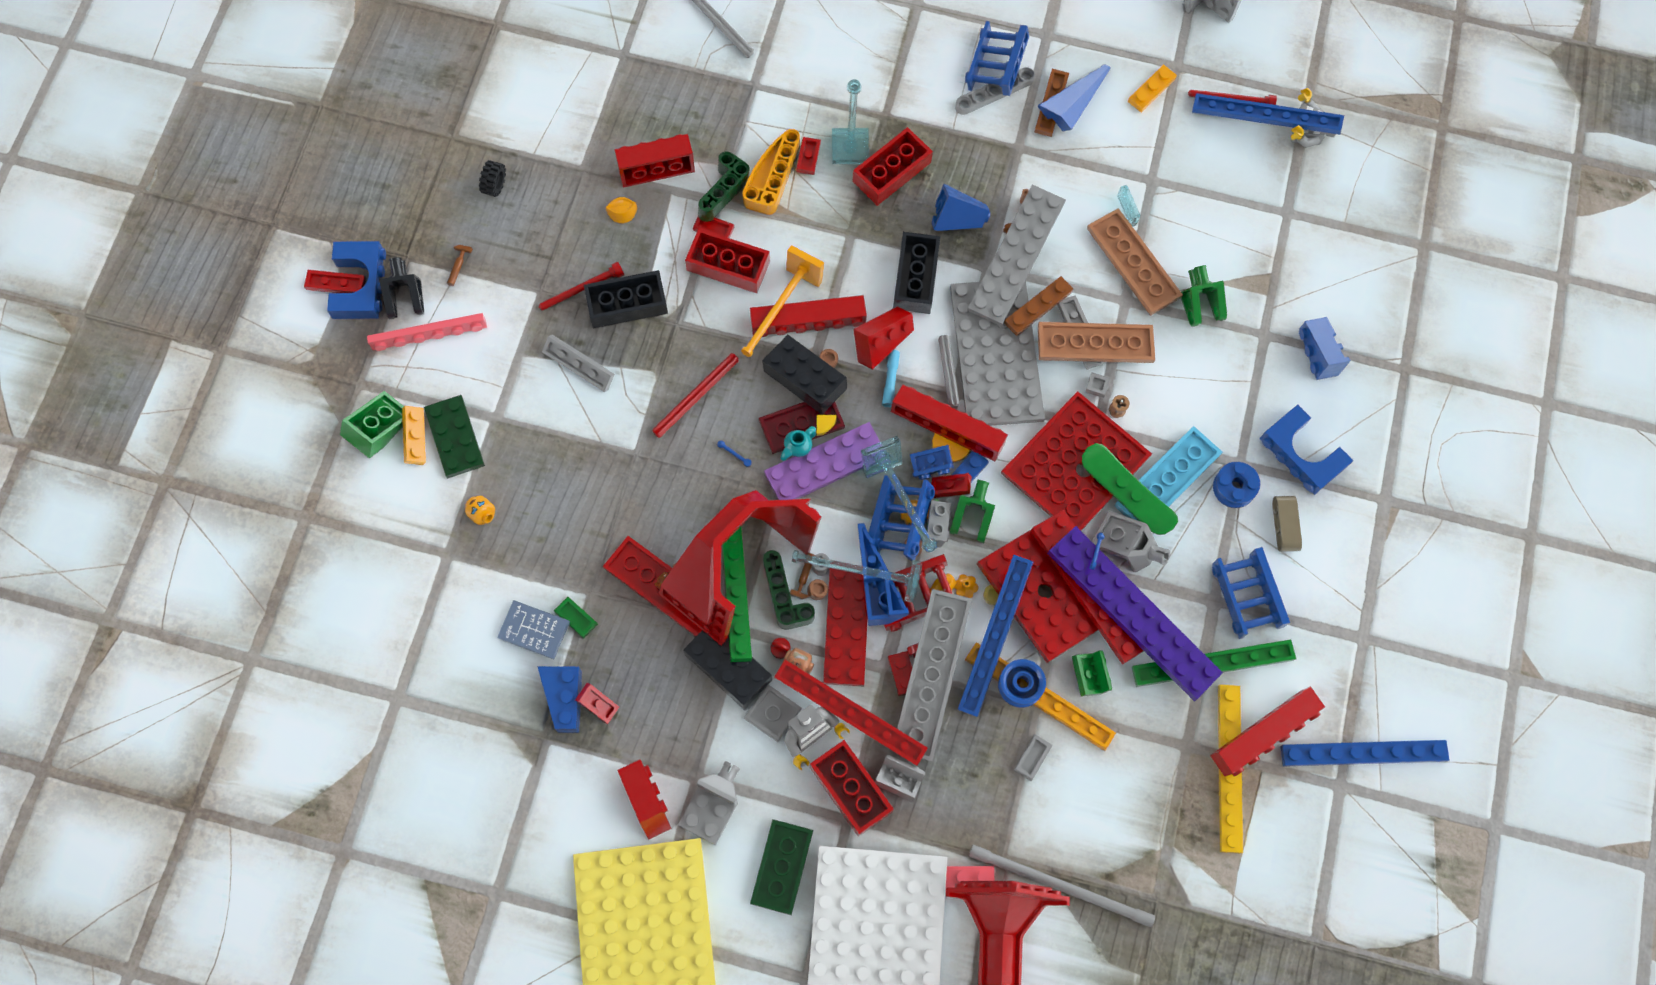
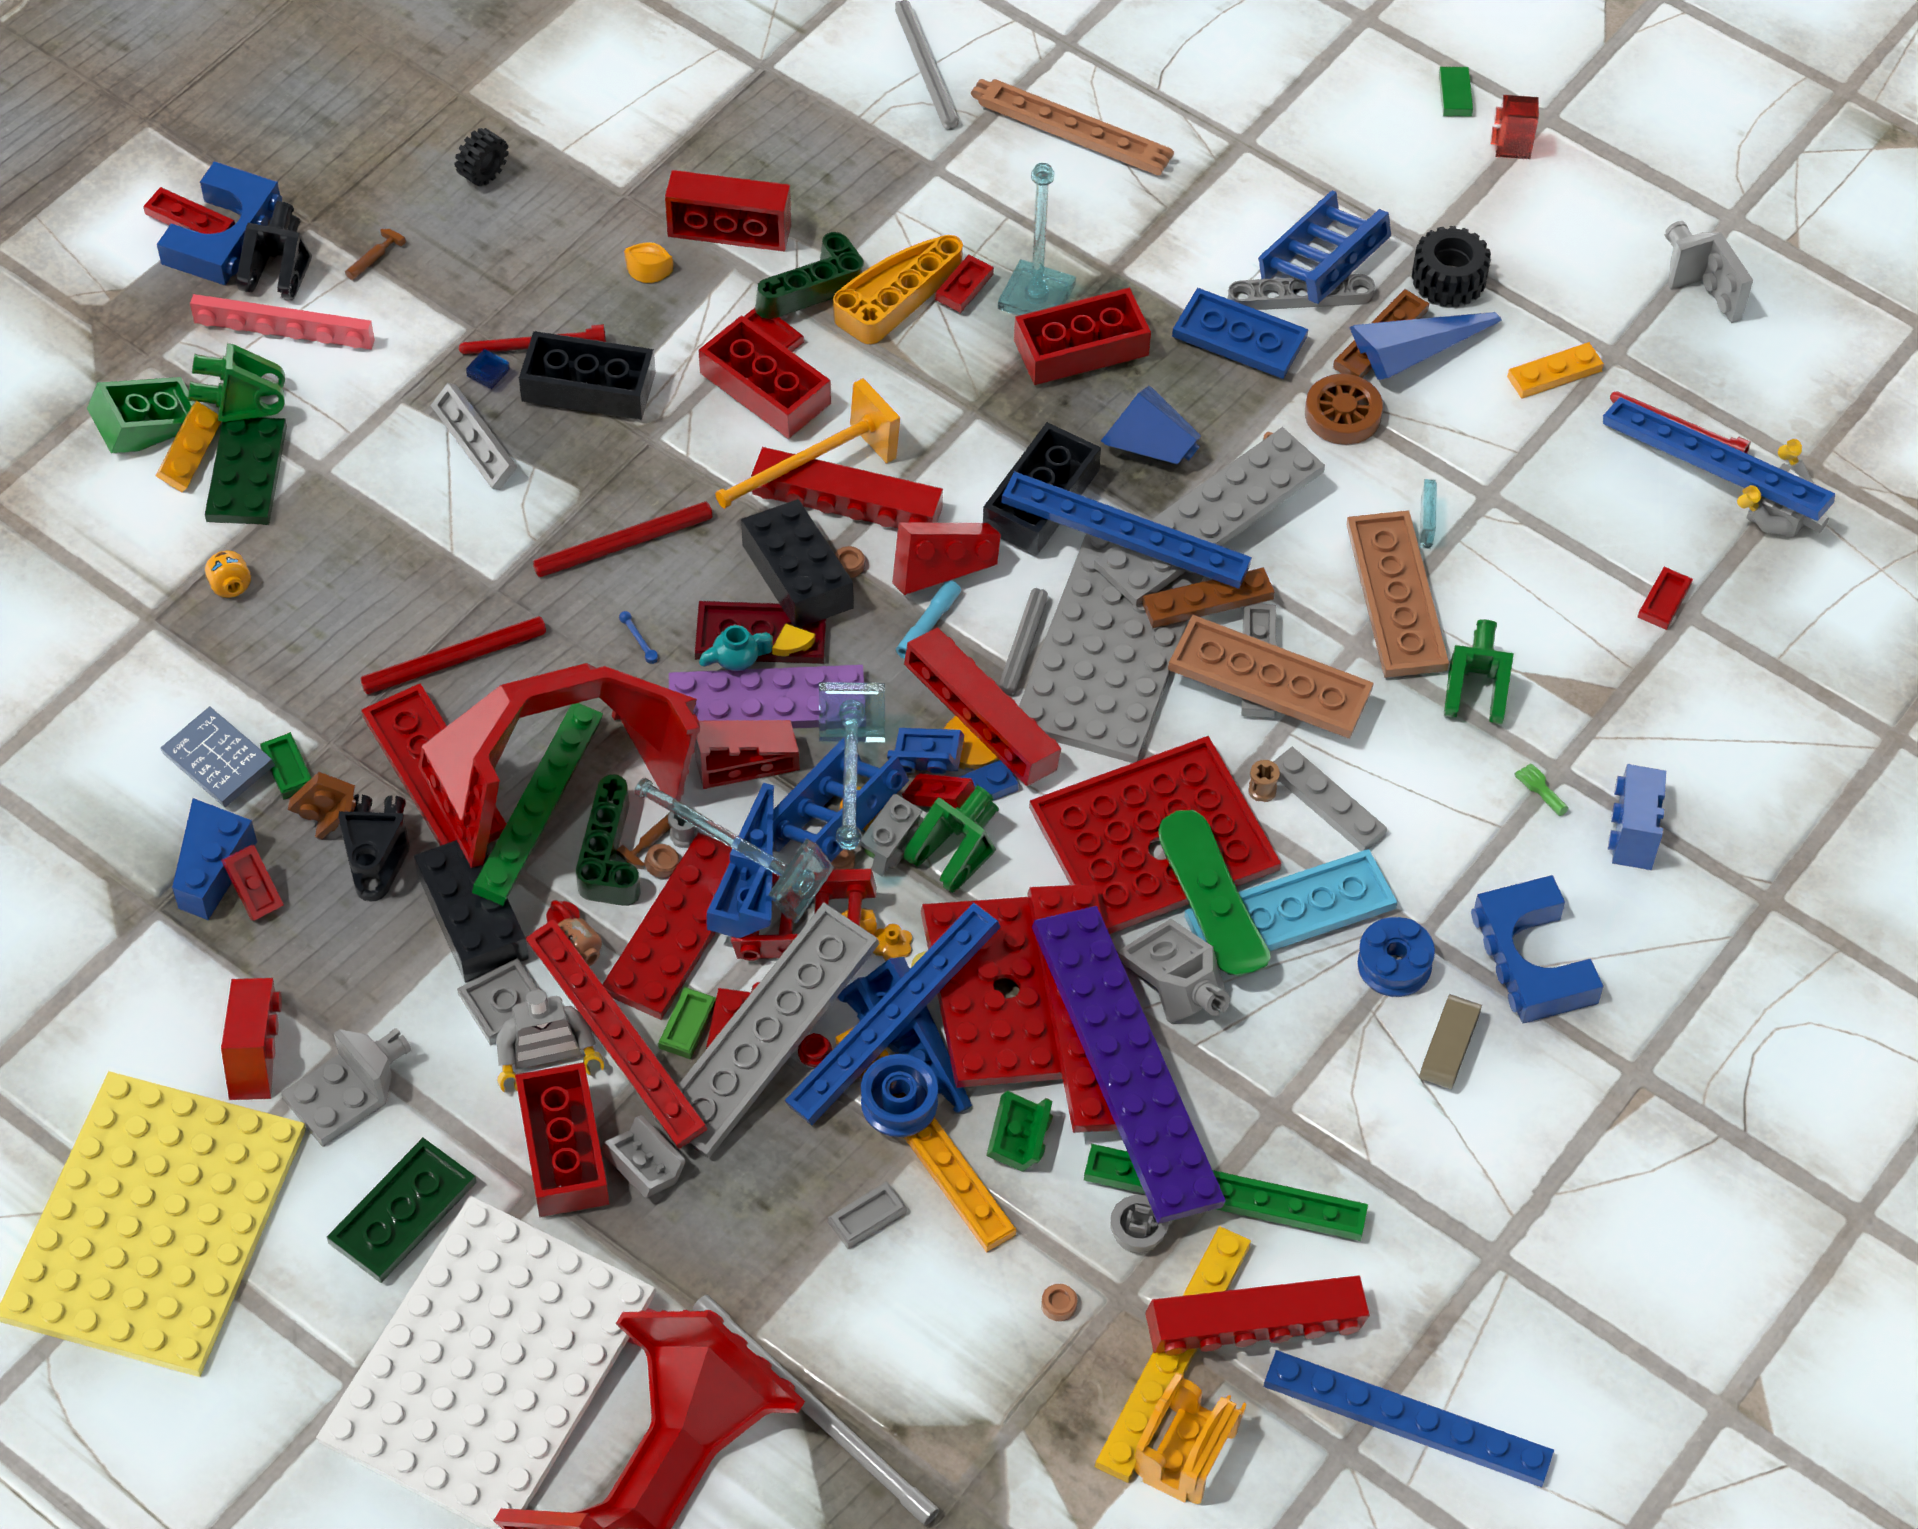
camera: 25 degrees right, 15 degrees down
(425, 386) = (240, 384): none -> green piece
(563, 315) = (487, 369): none -> clear blue plate
(615, 636) = (322, 800): none -> dark orange bracket
(630, 513) = (453, 655): none -> red axle
(653, 650) = (375, 843): none -> black piece
(819, 30) = (1073, 125): none -> nougat hinge
(836, 501) = (744, 750): none -> red wedge
(880, 683) = (687, 1023): none -> bright green tile
(961, 671) = (814, 1049): none -> red plate
(975, 130) = (1240, 333): none -> blue plate
(981, 284) = (1126, 530): none -> blue plate
(1015, 645) = (918, 1038): none -> blue wedge
(1052, 156) = (1342, 416): none -> dark orange wheel
(1074, 33) = (1455, 249): none -> black tyre
(1097, 385) = (1246, 740): light grey plate -> none
(1100, 536) = (1125, 933): blue hinge -> none
(1156, 403) = (1329, 800): none -> light grey plate
(1157, 765) = (1059, 1302): none -> nougat tile
(1178, 703) = (1136, 1225): none -> light grey piece
(1257, 347) = (1535, 781): none -> bright green piece
(1260, 820) = (1190, 1442): none -> light orange animal
(1264, 579) = (1368, 1104): blue fence -> none
(1272, 208) = (1665, 598): none -> red tile

